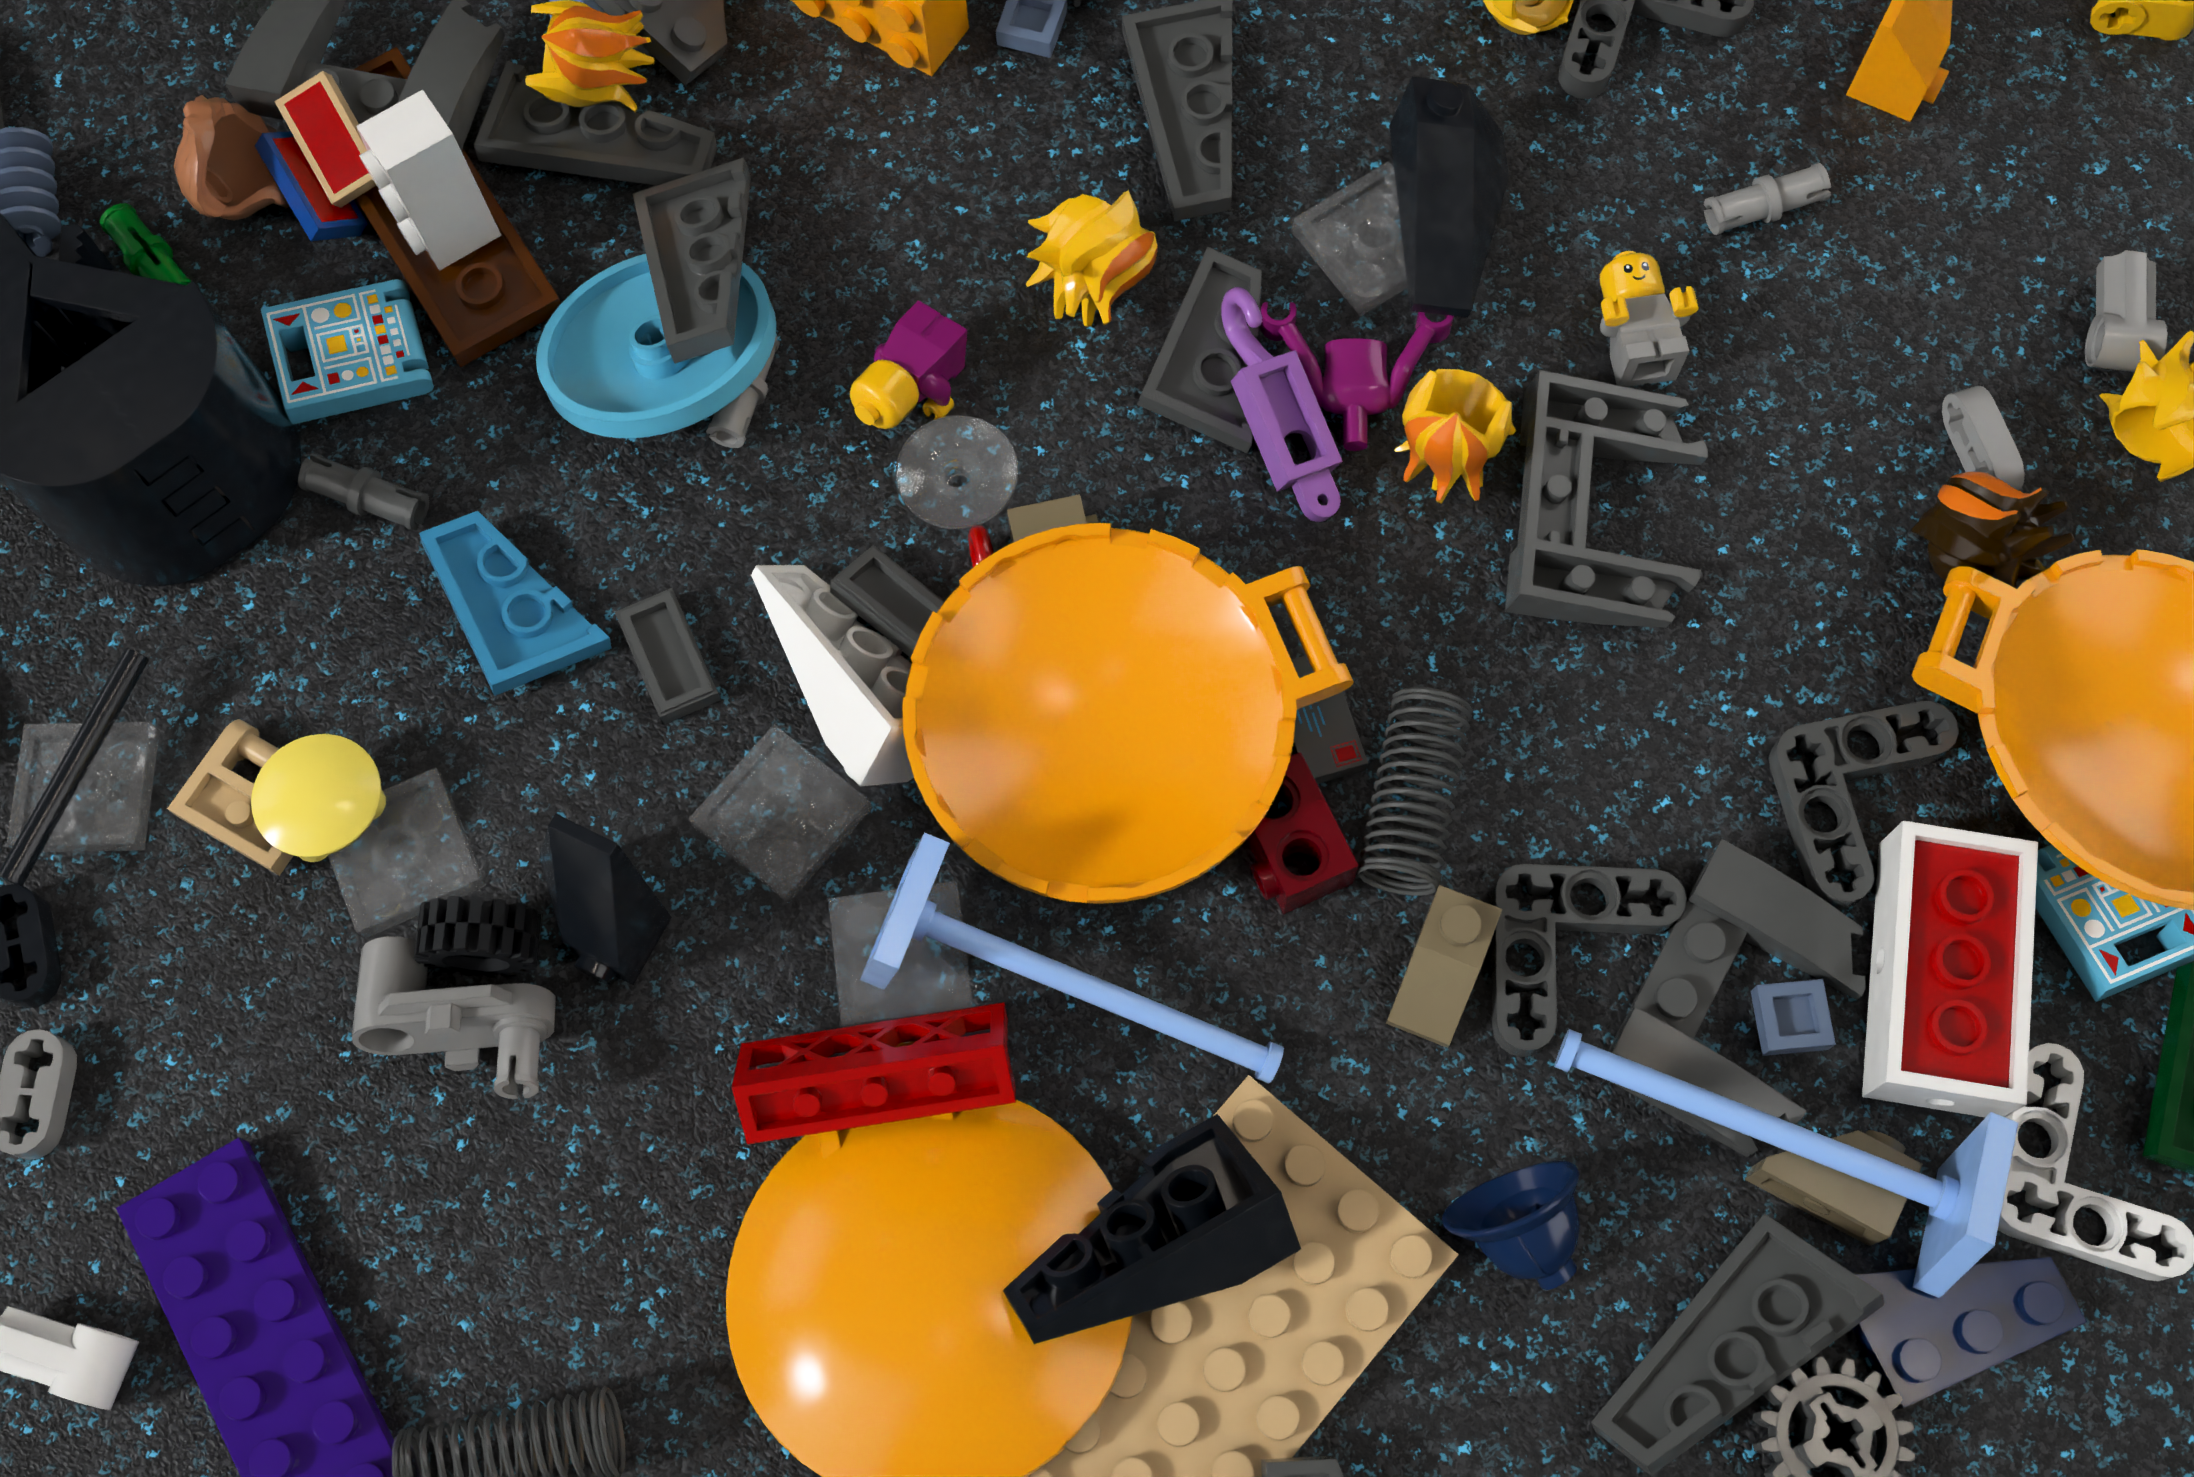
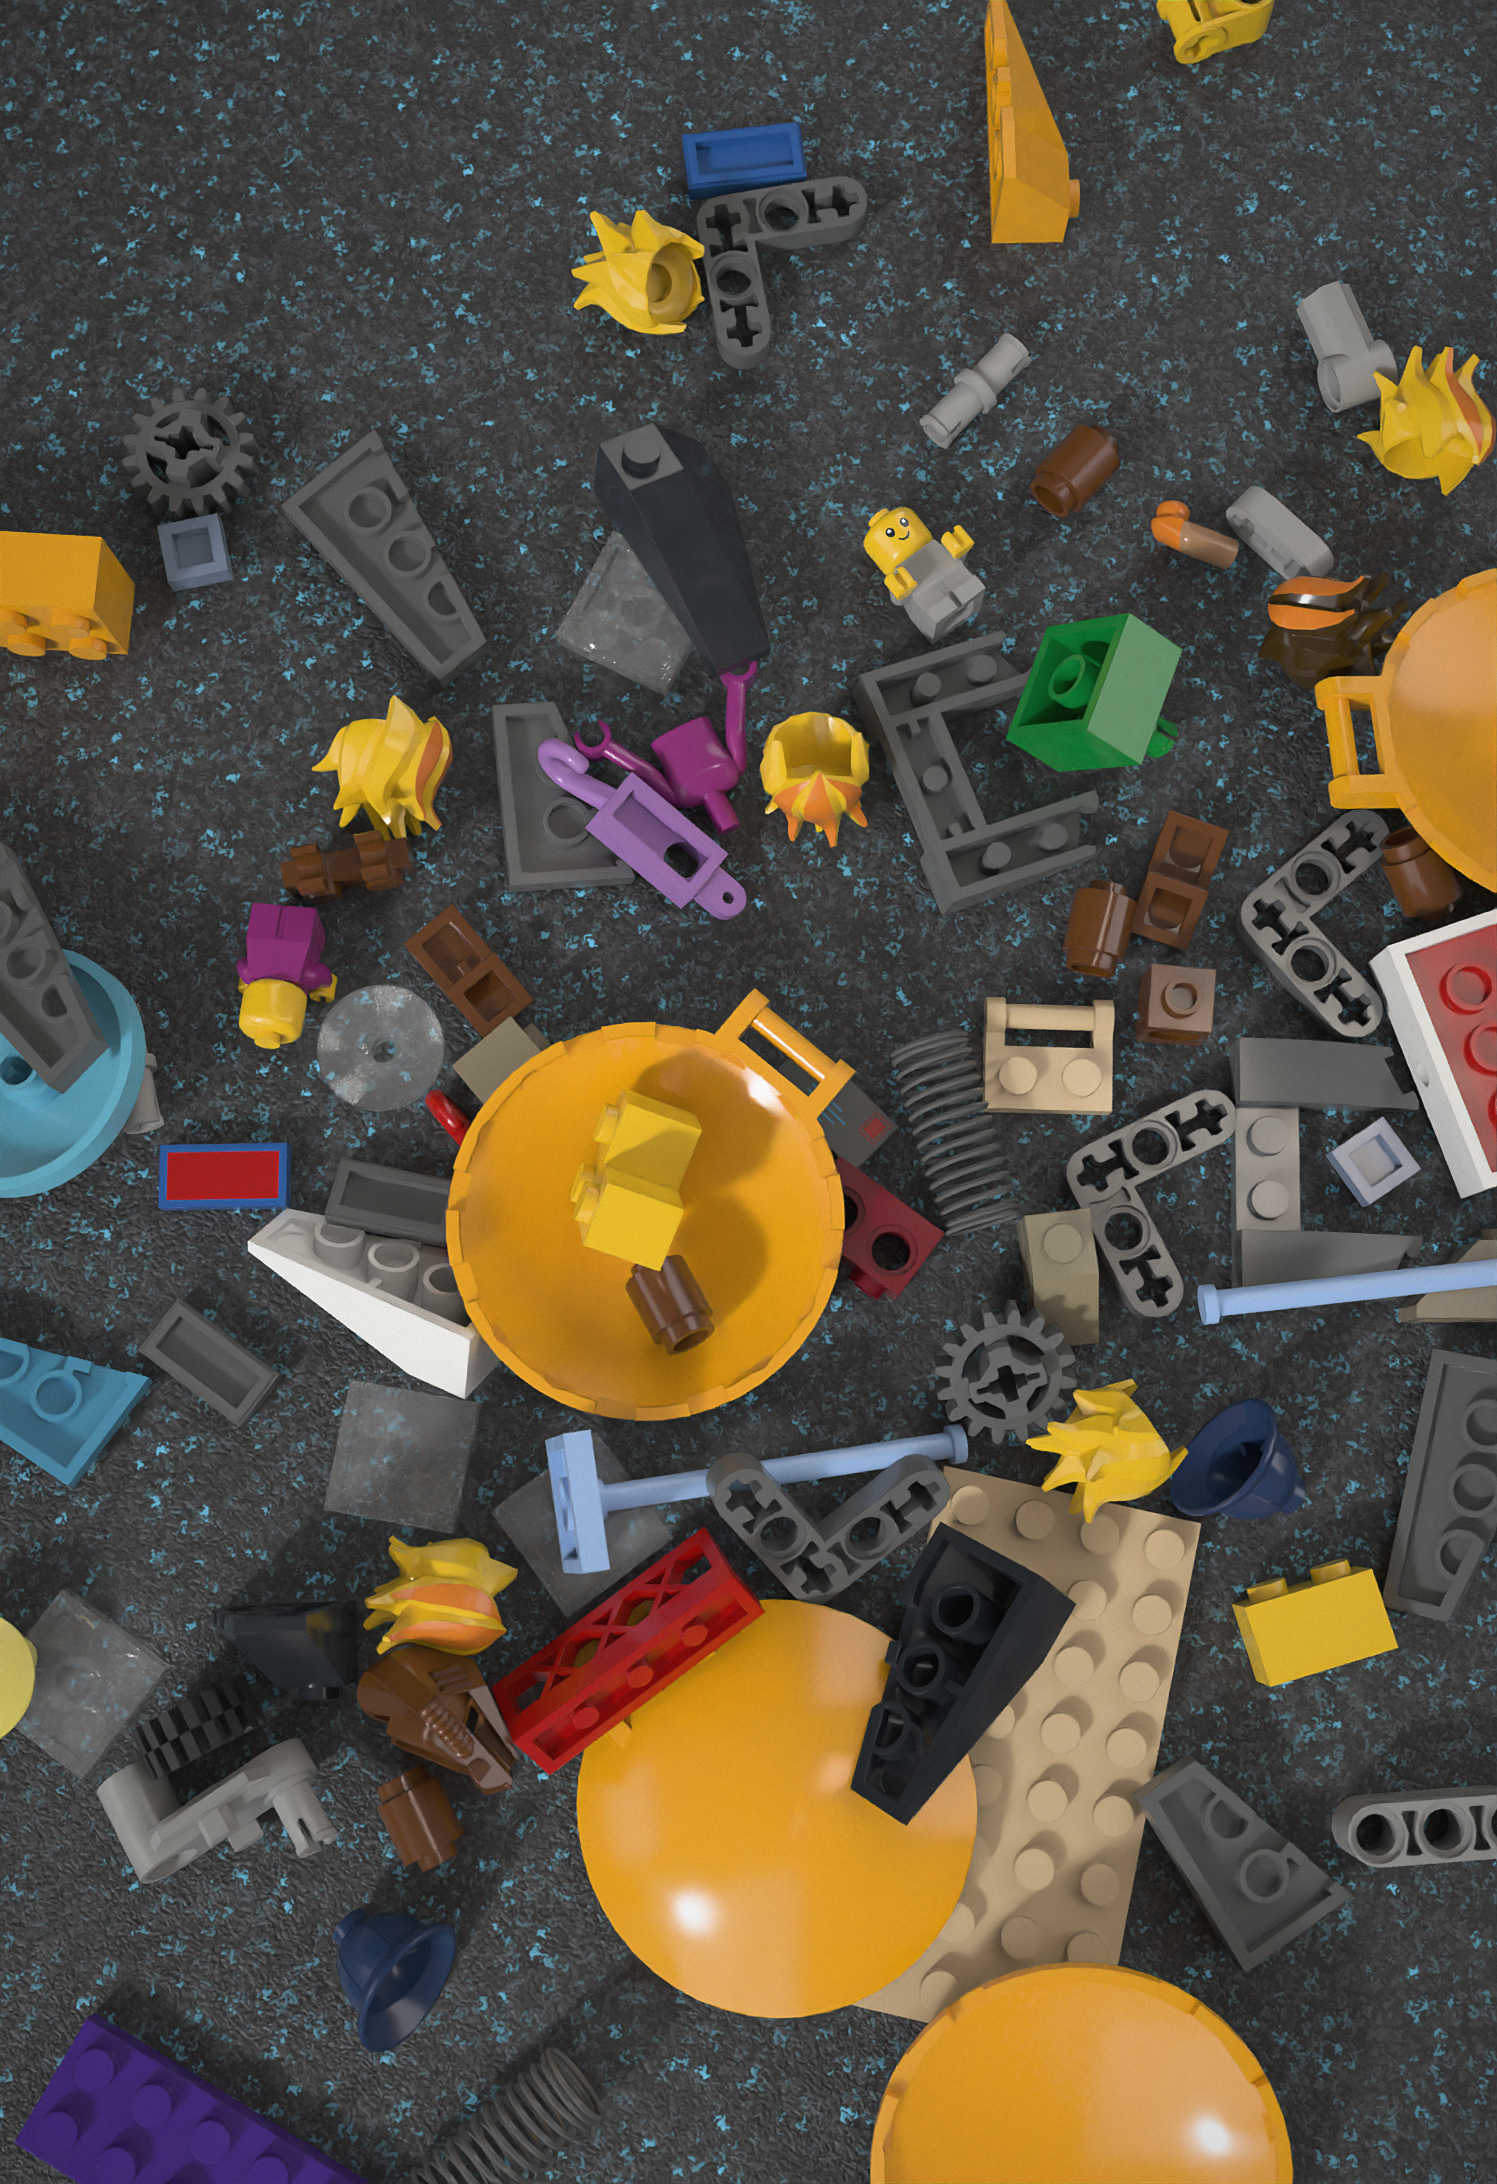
camera: 30 degrees left, 10 degrees up
(514, 1245) = (391, 1972): none -> dark blue hat
(615, 1124) = (419, 1818): none -> reddish brown brick
(682, 1025) = (427, 1708): none -> reddish brown helmet
(741, 941) = (441, 1597): none -> yellow hair
(768, 513) = (225, 1176): none -> red tile
(1030, 322) = (373, 863): none -> reddish brown plate
(1066, 447) = (468, 971): none -> reddish brown slope
(1081, 790) = (671, 1305): none -> reddish brown brick
(1108, 1080) = (829, 1540): none -> dark grey beam
(1111, 666) = (630, 1191): none -> yellow brick
(1379, 1022) = (976, 1380): none -> dark grey gear
(1404, 1130) = (1107, 1450): none -> yellow hair
(1518, 1401) = (1313, 1623): none -> yellow brick
(1526, 792) = (1048, 1077): none -> tan plate
(1640, 687) = (1098, 929): none -> reddish brown brick
(1677, 784) = (1175, 1005): none -> reddish brown brick
(1736, 683) = (1178, 879): none -> reddish brown slope
(1744, 485) = (1097, 695): none -> green brick
(1823, 301) = (1075, 470): none -> reddish brown brick
(1891, 396) = (1198, 542): none -> arm
(1967, 785) = (1419, 875): none -> reddish brown brick

